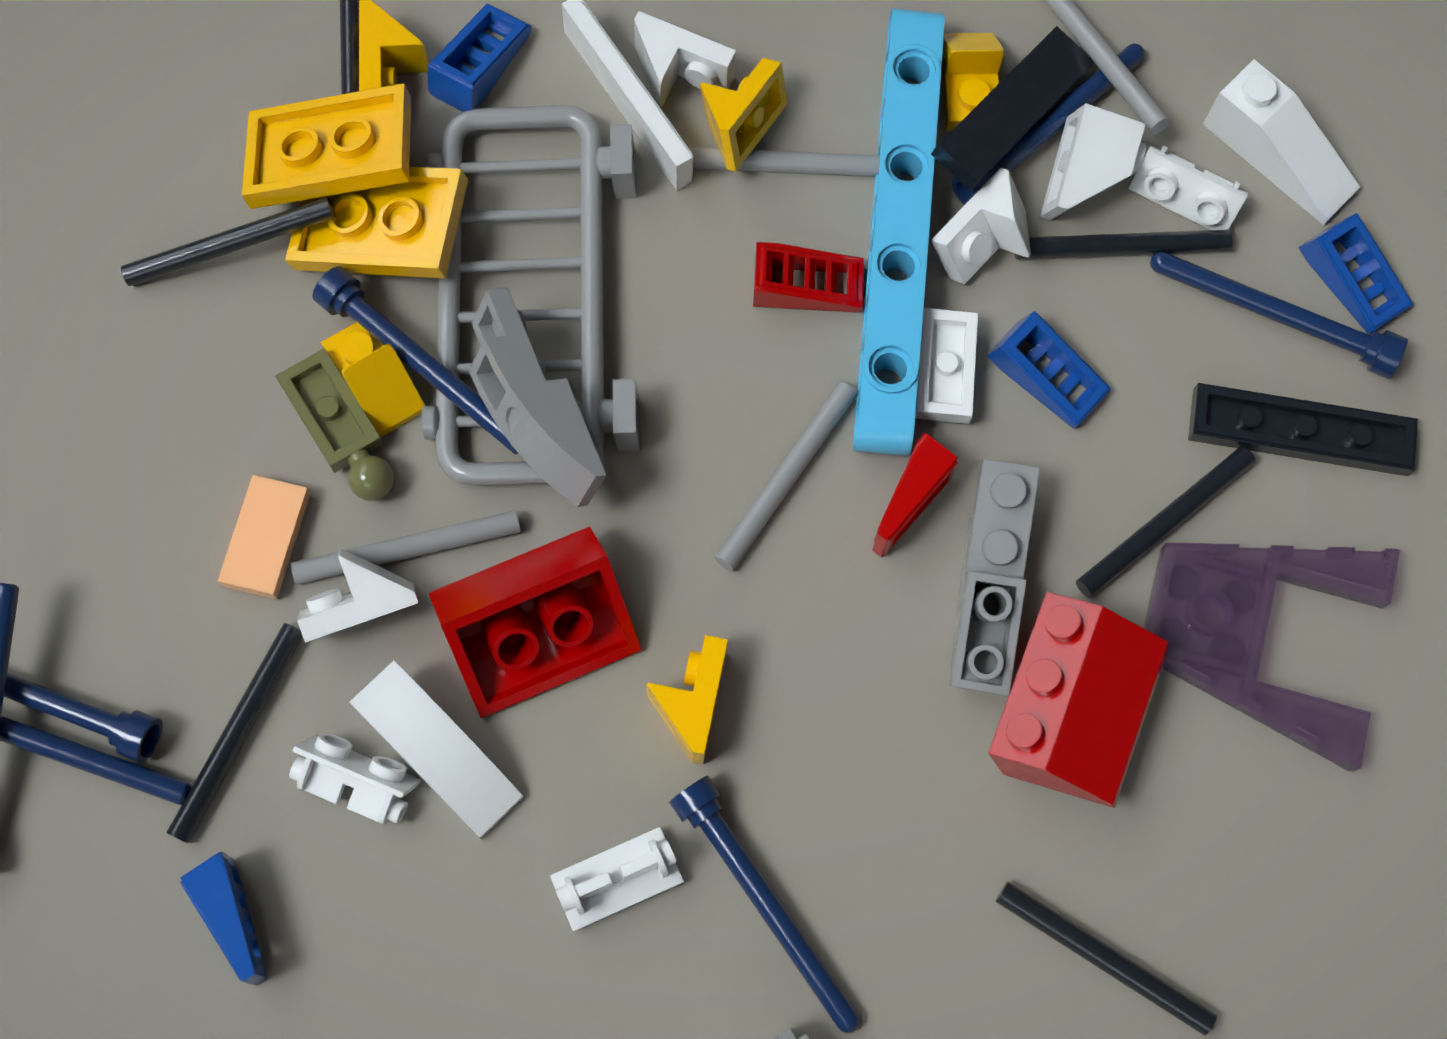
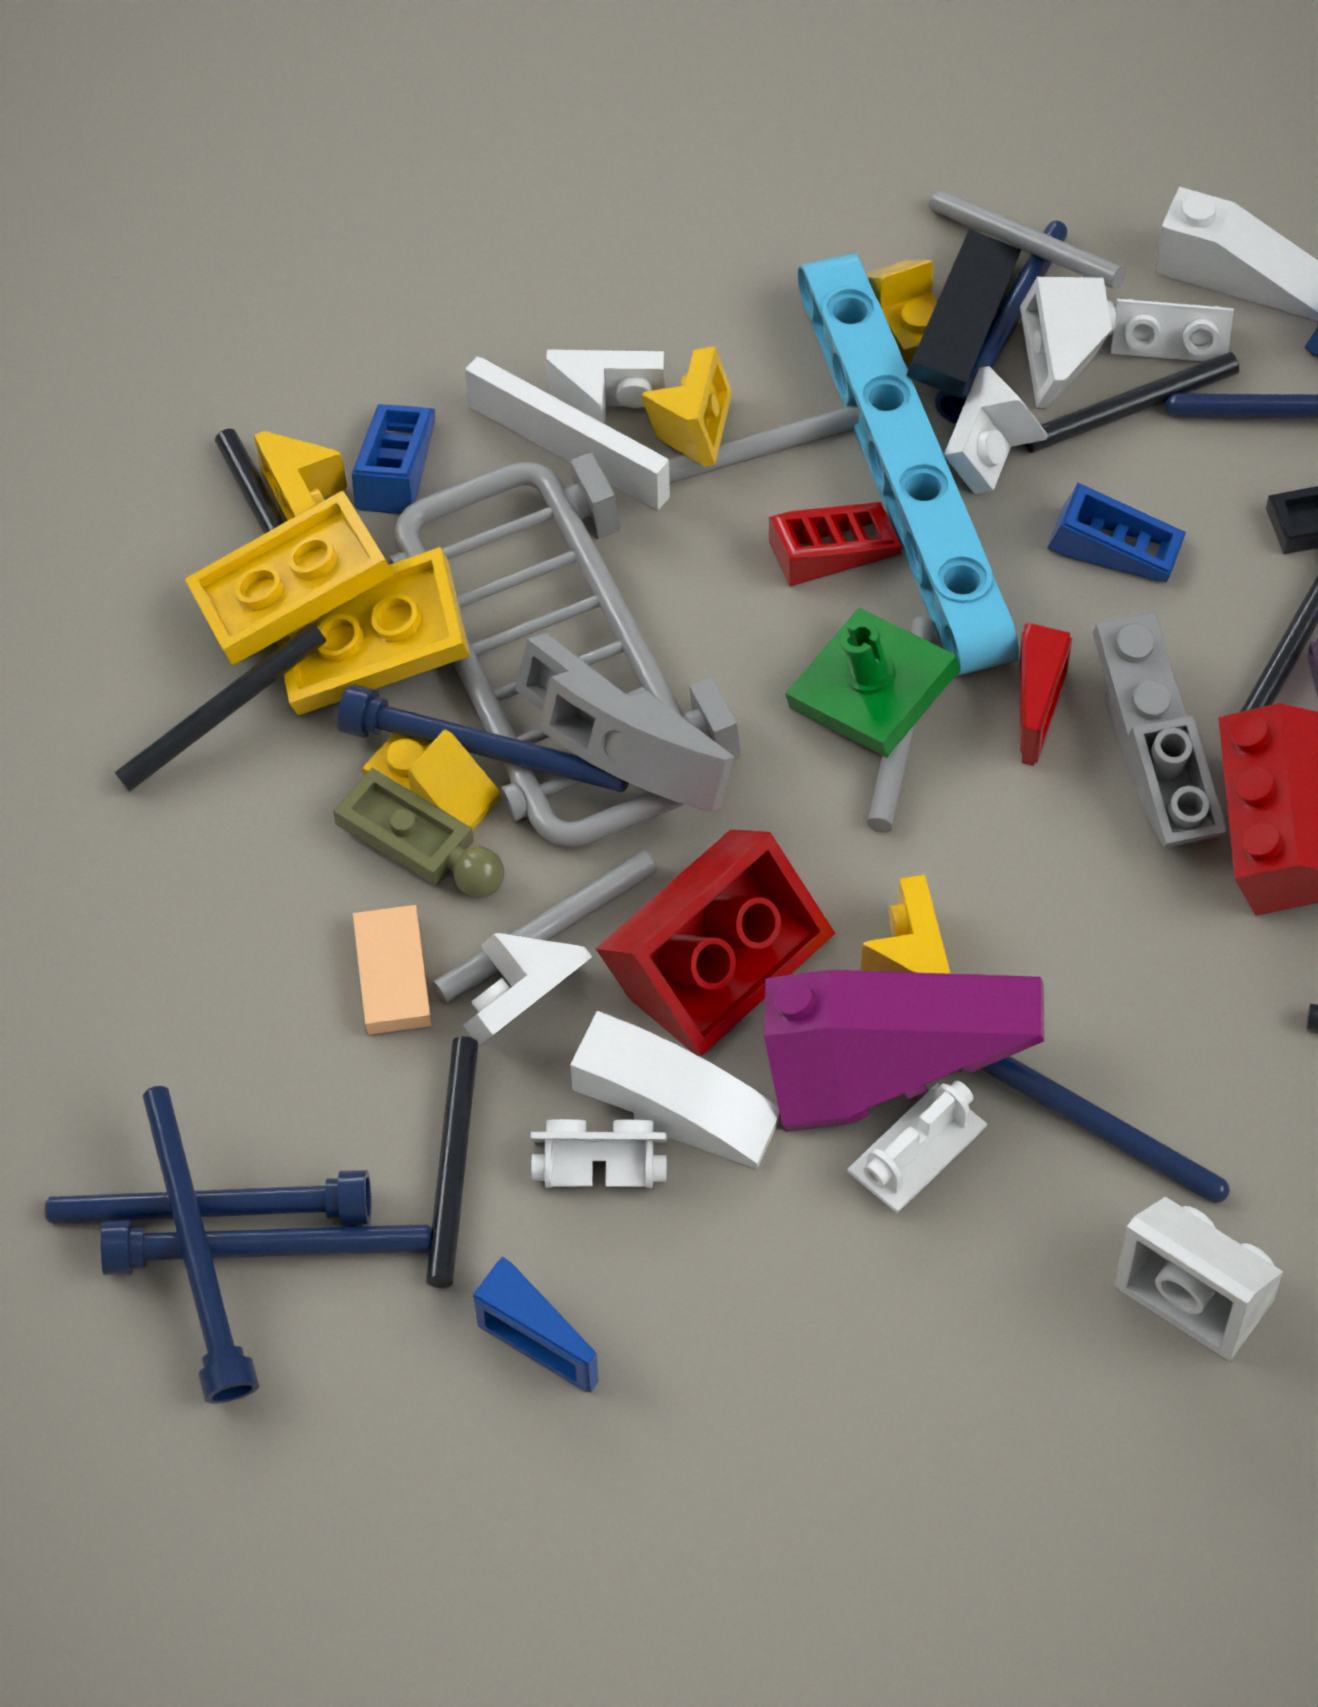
camera: 15 degrees left, 15 degrees down
(613, 776) = (869, 1036): none -> magenta wedge
(776, 430) = (873, 682): none -> green tile
(947, 366) = (1018, 565): white plate -> none

